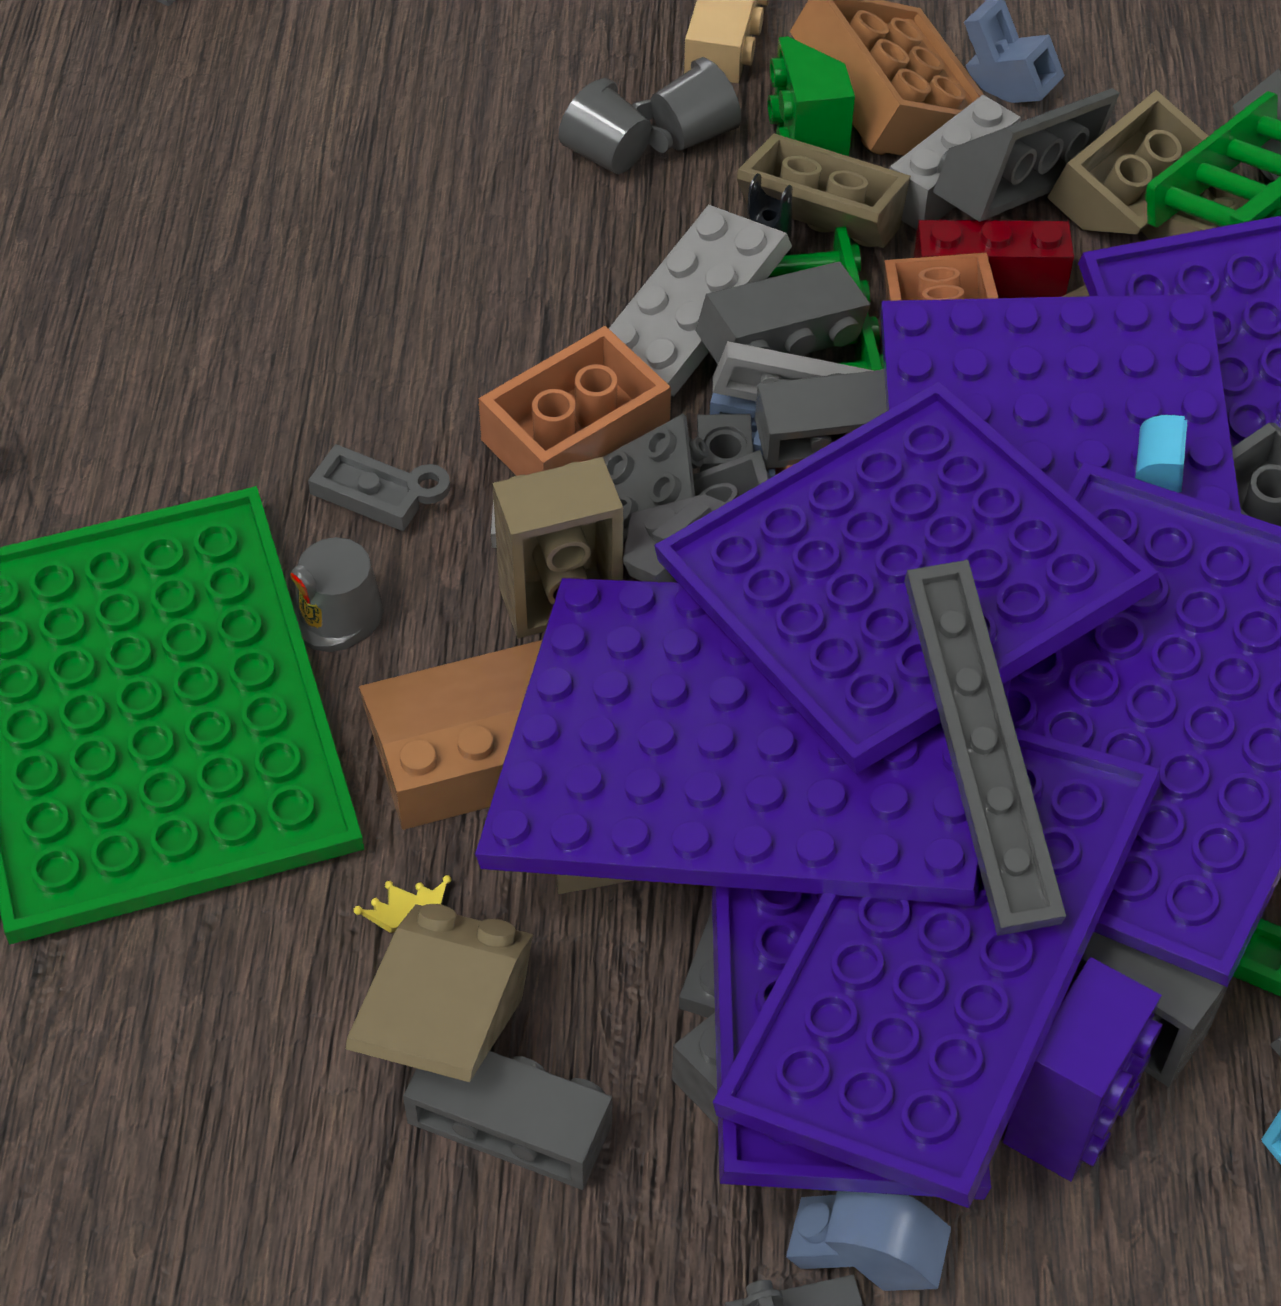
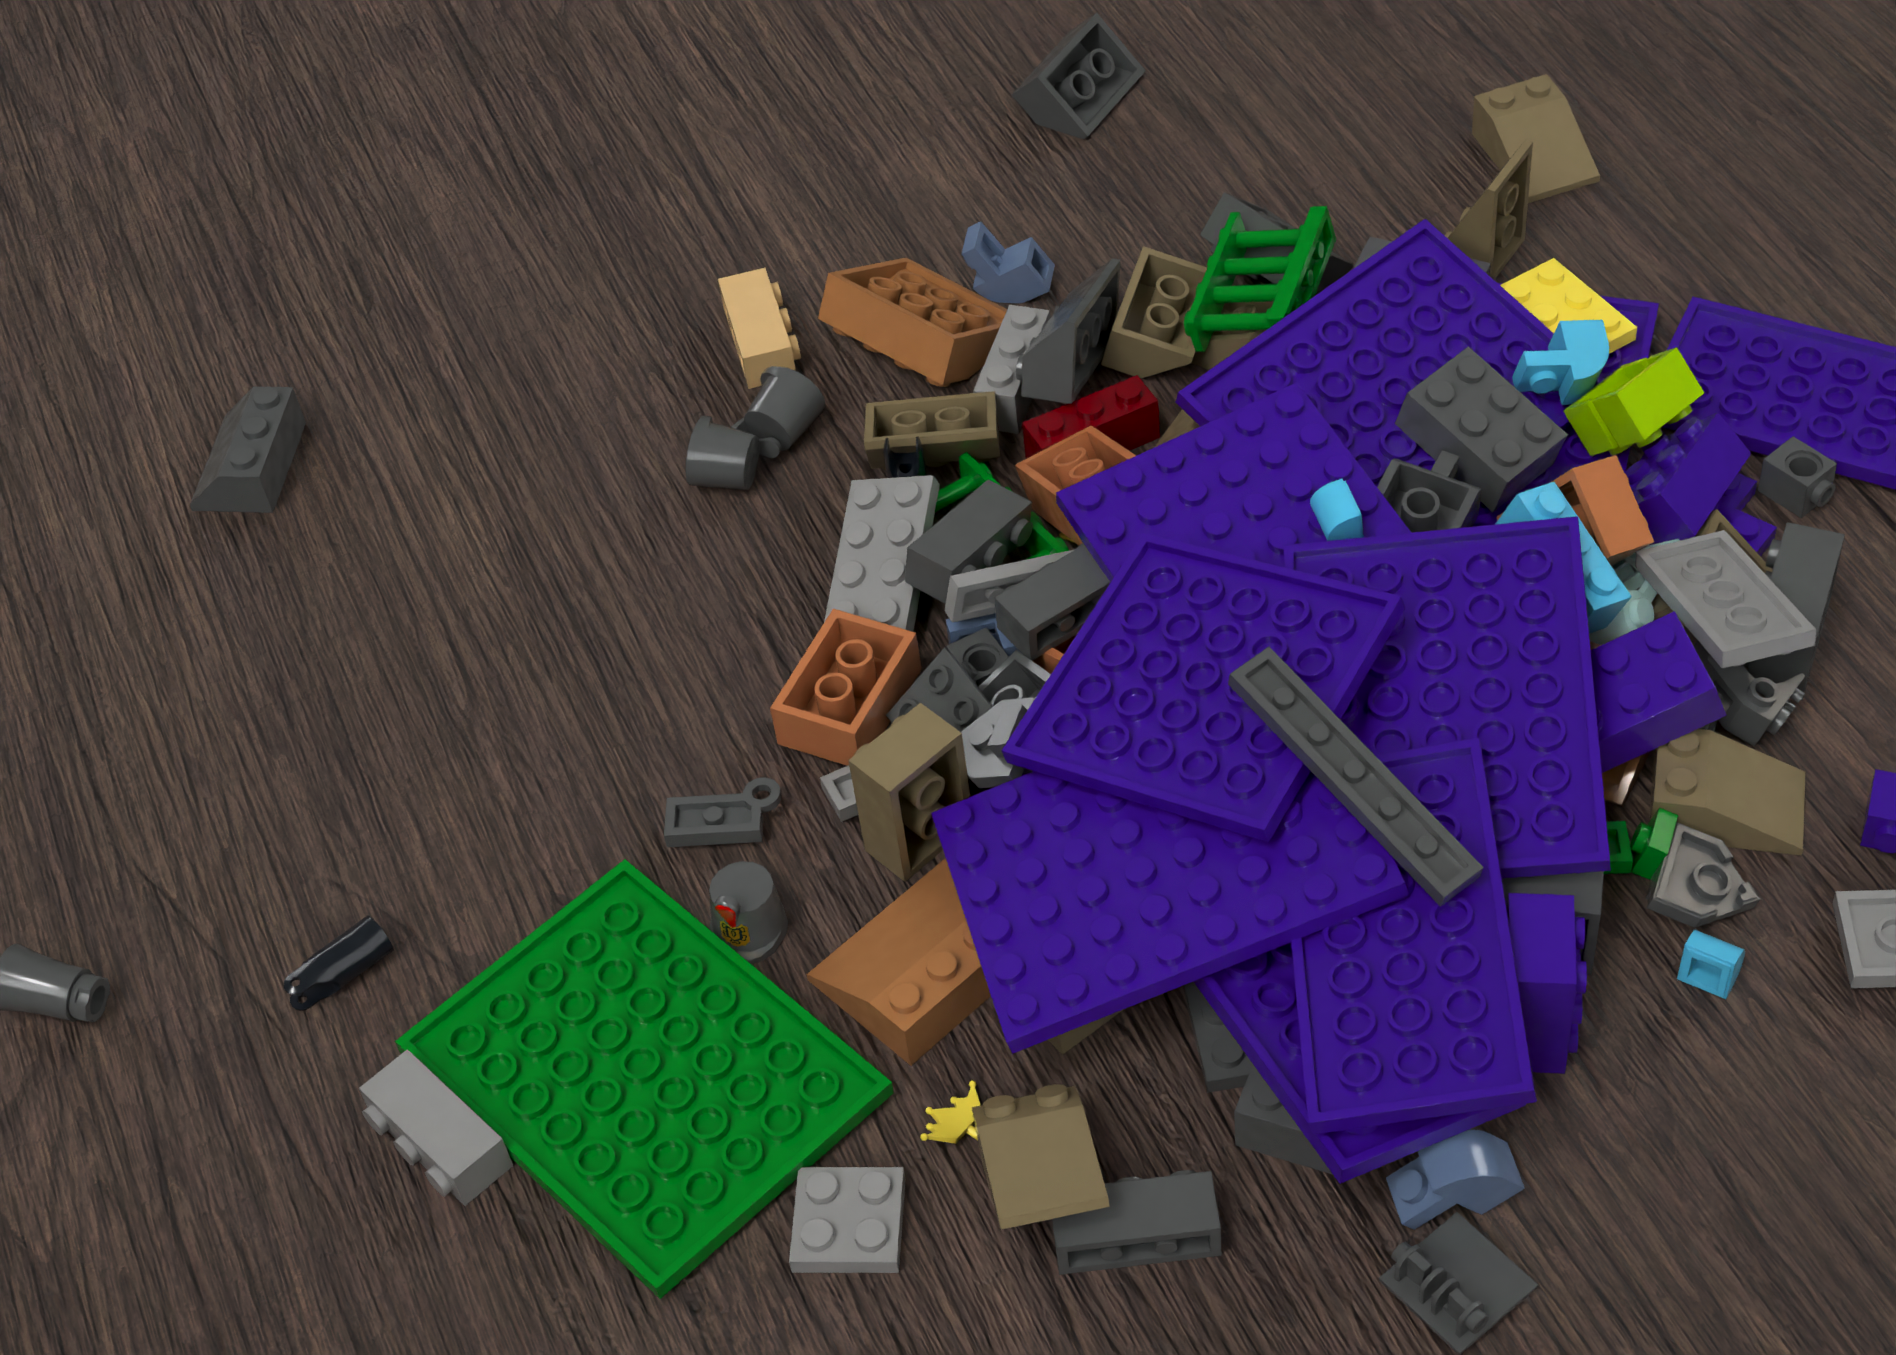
camera: 20 degrees left, 5 degrees down
(236, 957) = (847, 1220): none -> light grey plate
(811, 97) = (876, 363): green slope -> none

